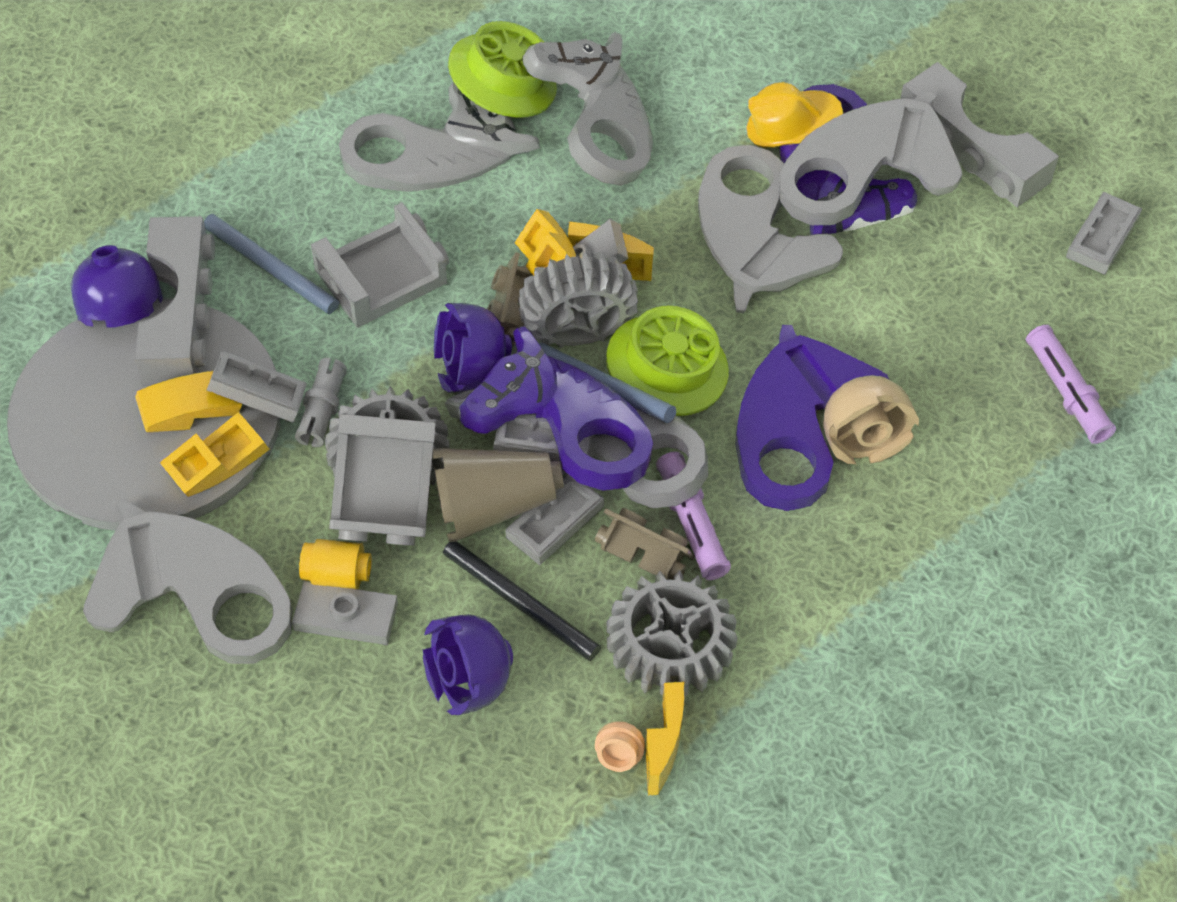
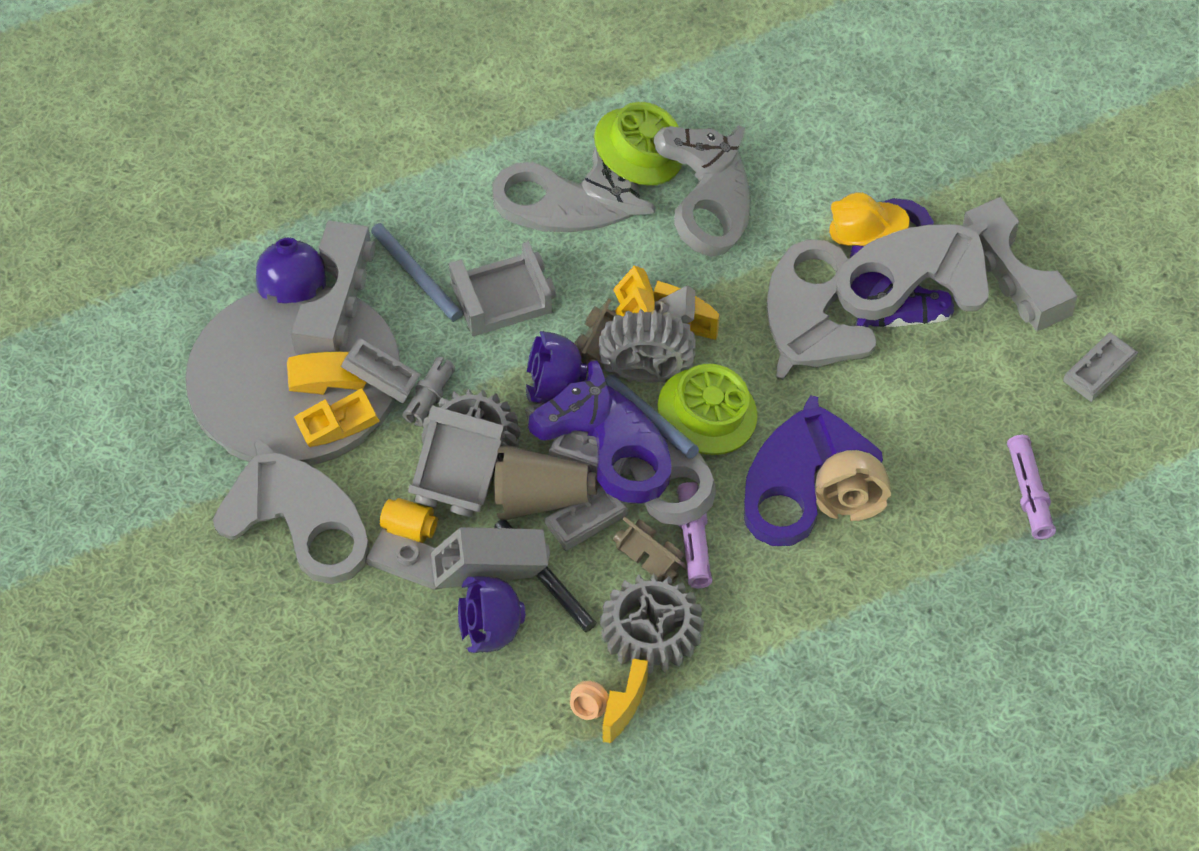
camera: 15 degrees right, 0 degrees up
(450, 586) = (489, 553): none -> light grey slope

